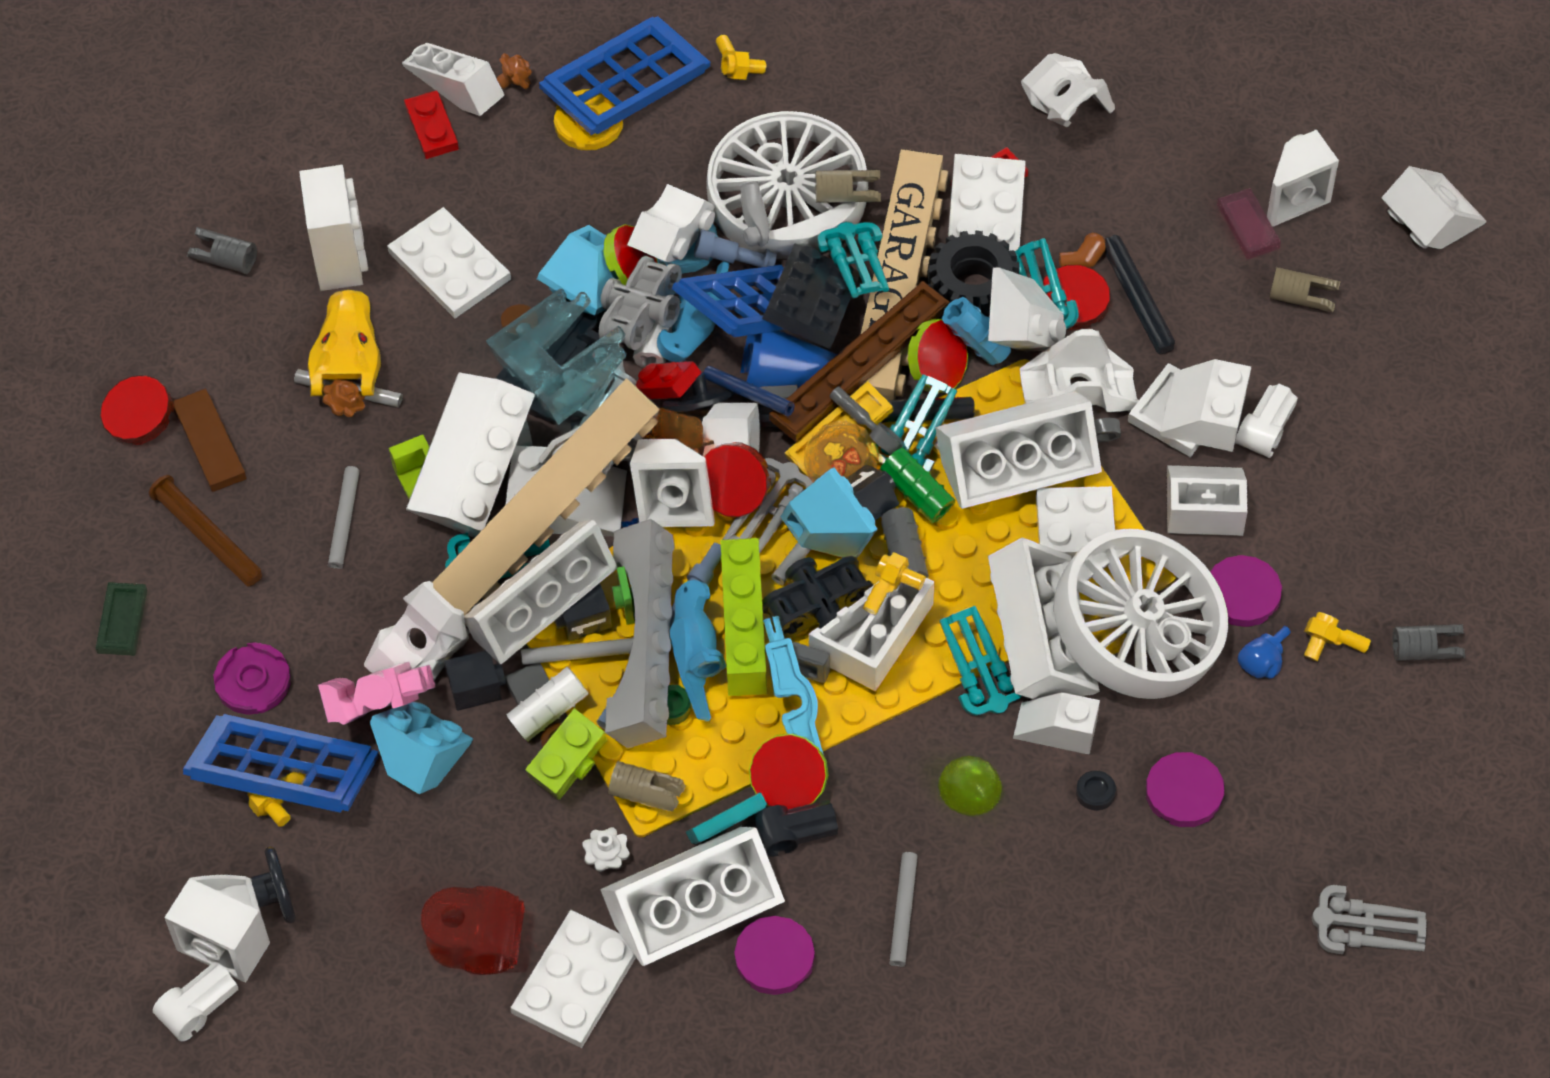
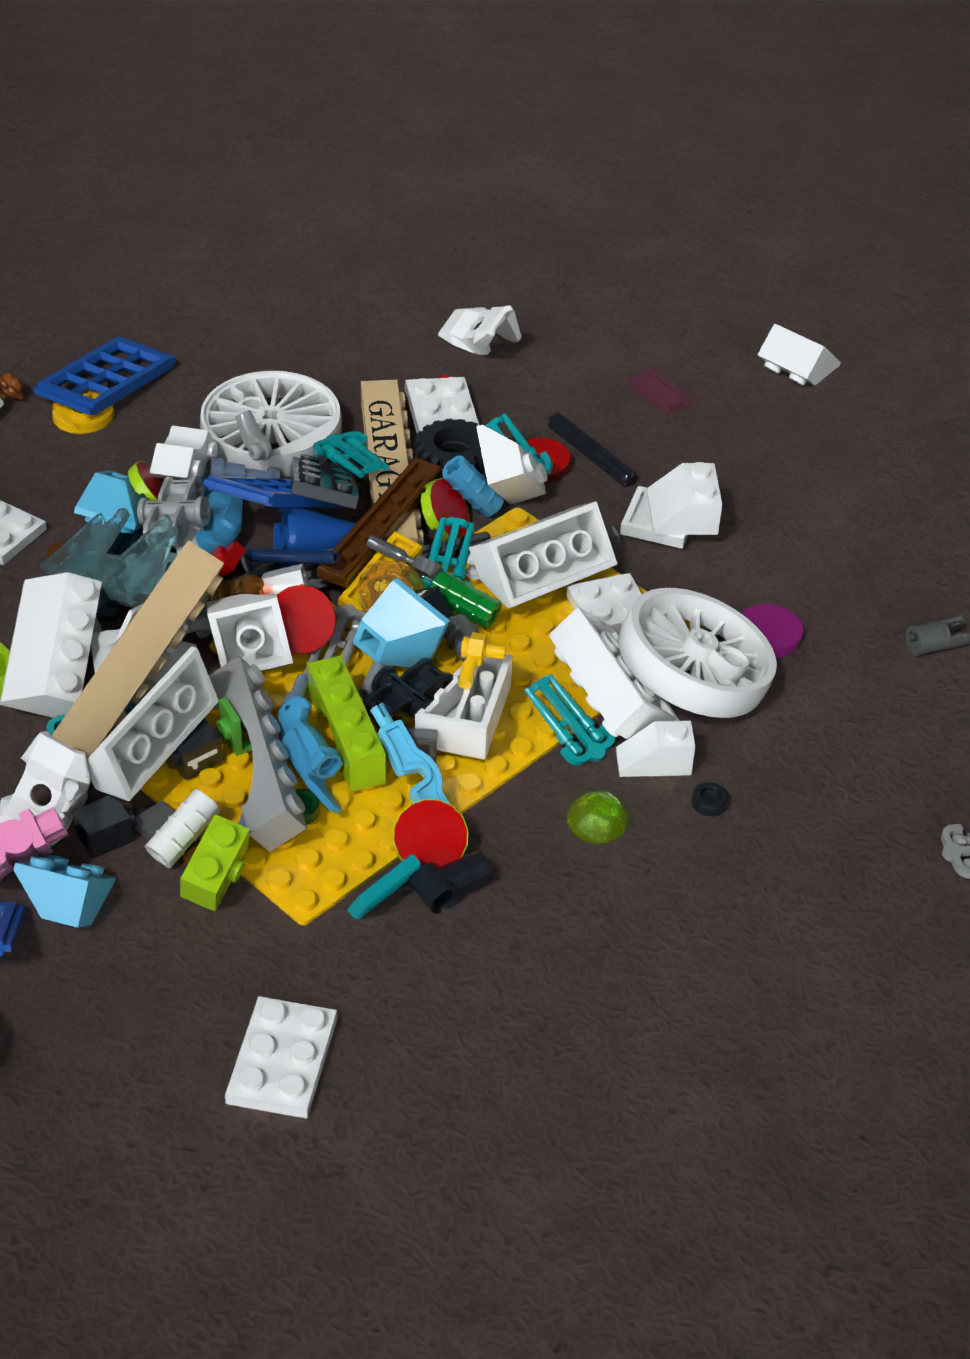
camera: 20 degrees left, 15 degrees down
(474, 928) = (177, 1030): clear red piece -> none
(576, 651) = (198, 782): light grey piece -> none
(606, 849) = (276, 938): white plant -> none
(645, 786) = (299, 874): dark tan hinge -> none
(693, 894) = (376, 953): white slope -> none
(737, 63) = (200, 353): yellow piece -> none
(774, 955) = (469, 992): magenta tile -> none
(838, 186) = (320, 406): dark tan hinge -> none
(903, 909) = (576, 929): light grey piece -> none
(1085, 356) = (562, 489): white piece -> none
(1087, 254) = (540, 427): dark orange arm -> none
(1184, 789) = (786, 782): magenta tile -> none
(1206, 500) = (714, 570): white slope -> none
(1263, 655) = (807, 672): blue piece -> none
(1265, 426) = (736, 510): white piece -> none
(1294, 288) = (717, 423): dark tan hinge -> none
(1302, 178) = (693, 348): white slope -> none
(1324, 629) = (851, 643): yellow piece -> none

